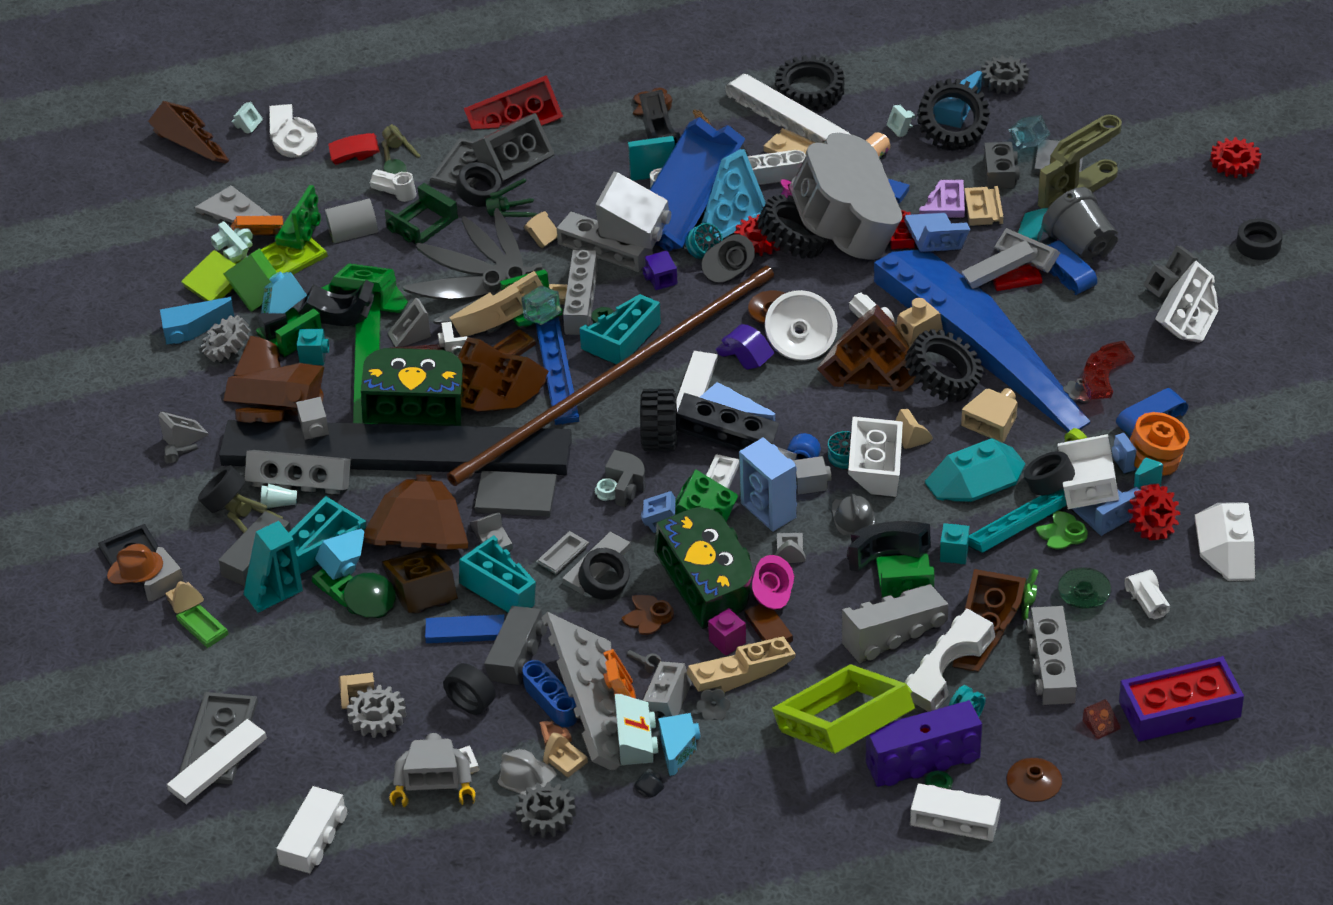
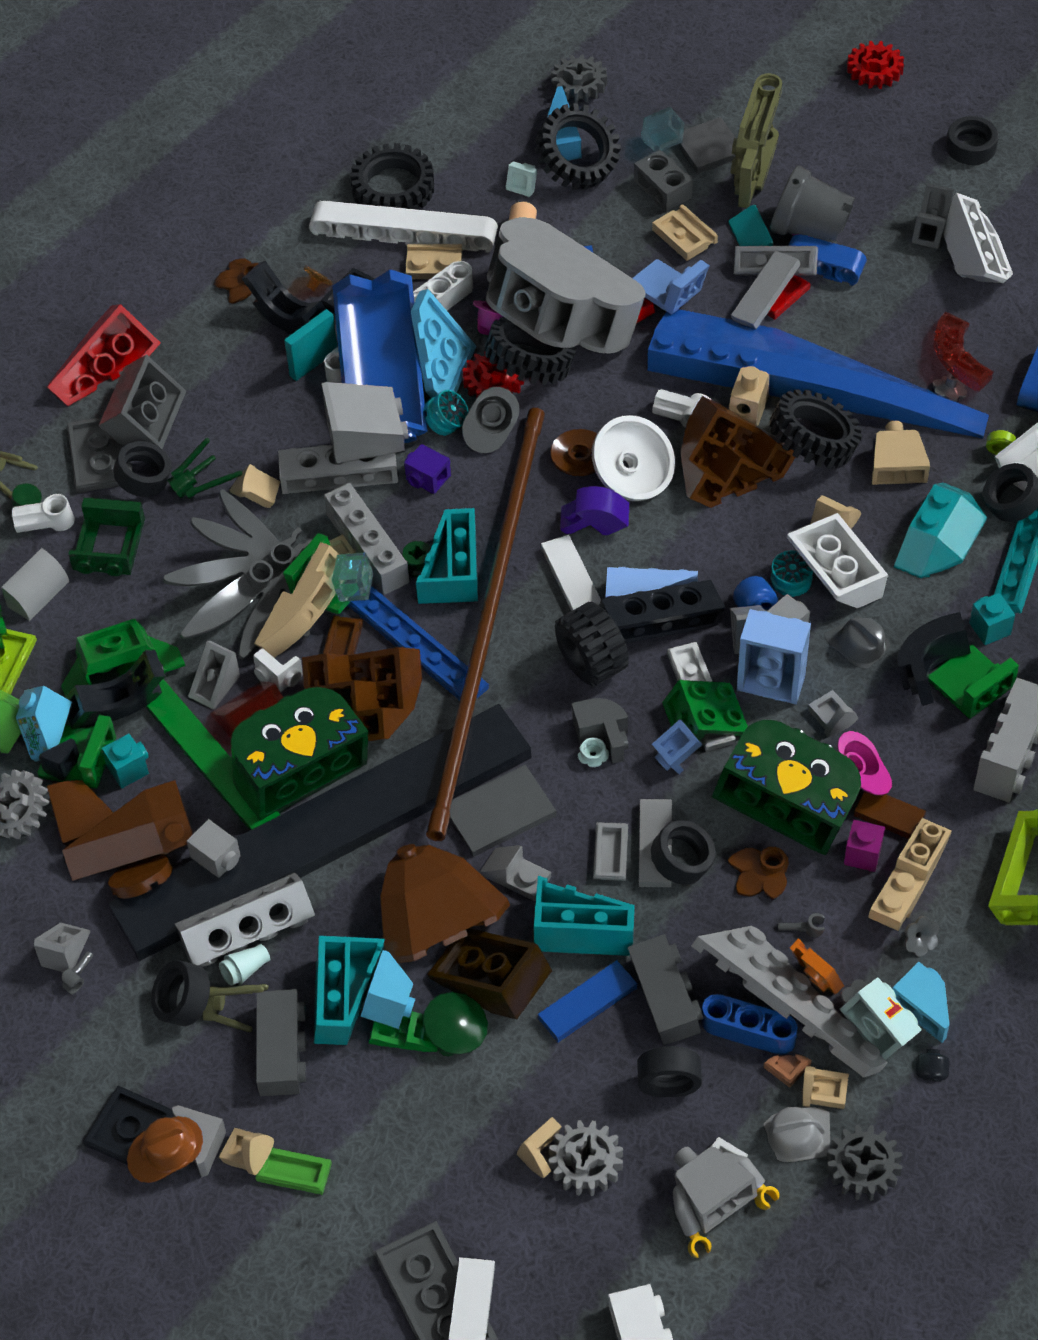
camera: 35 degrees left, 10 degrees up
(272, 568) = (333, 1058): teal wedge -> none
(668, 689) = (863, 947): light grey hinge -> none
(946, 198) = (643, 244): lavender wing -> none

